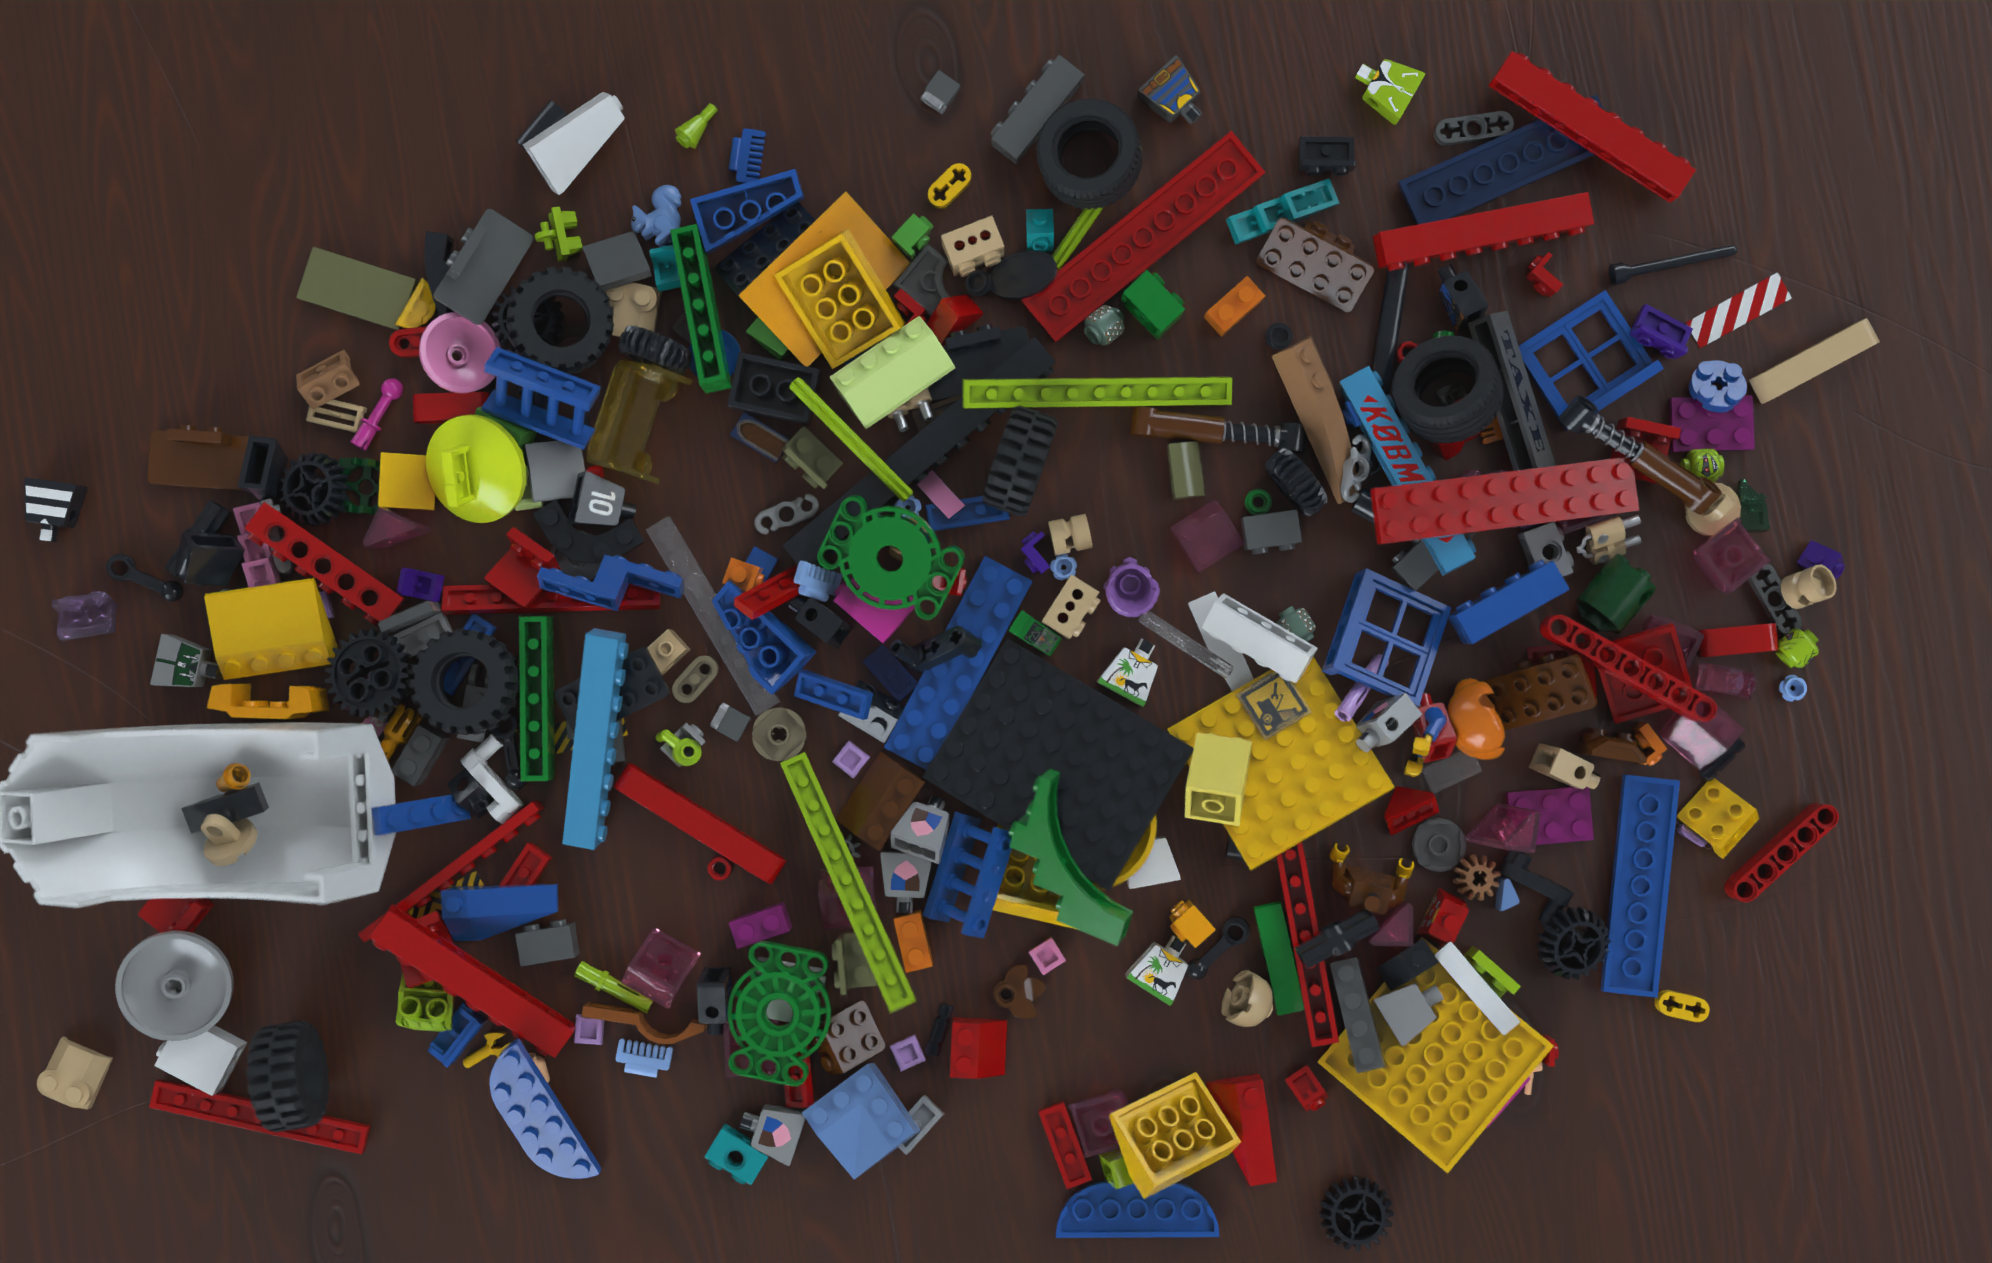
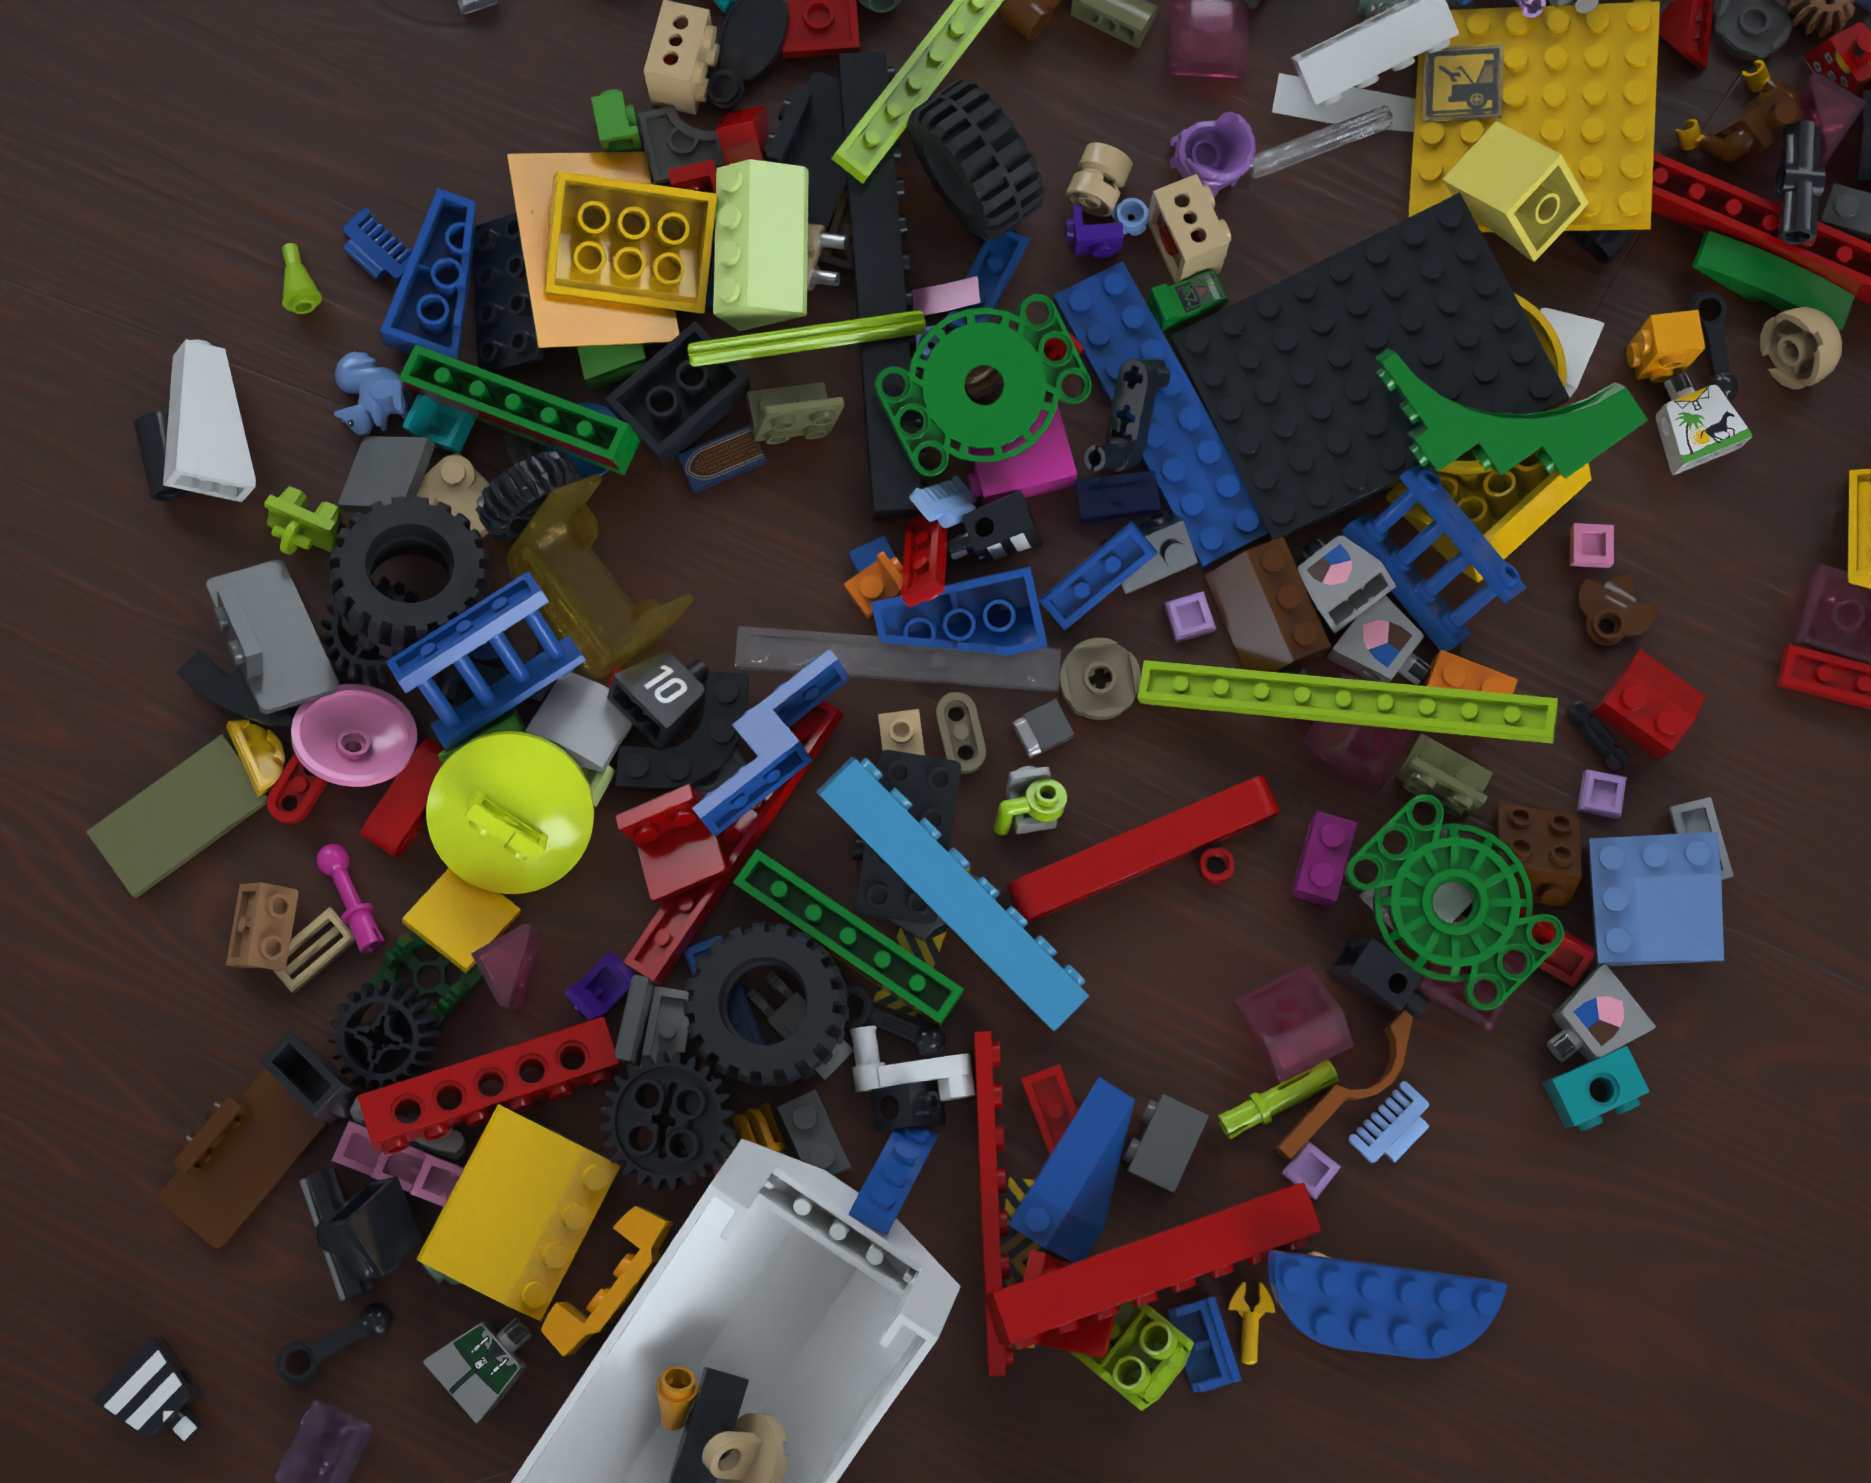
camera: 65 degrees left, 10 degrees down
(799, 514) = (823, 503): light grey piece -> none
(944, 181) = (595, 45): yellow beam -> none
(1131, 673) = (1314, 222): torso -> none

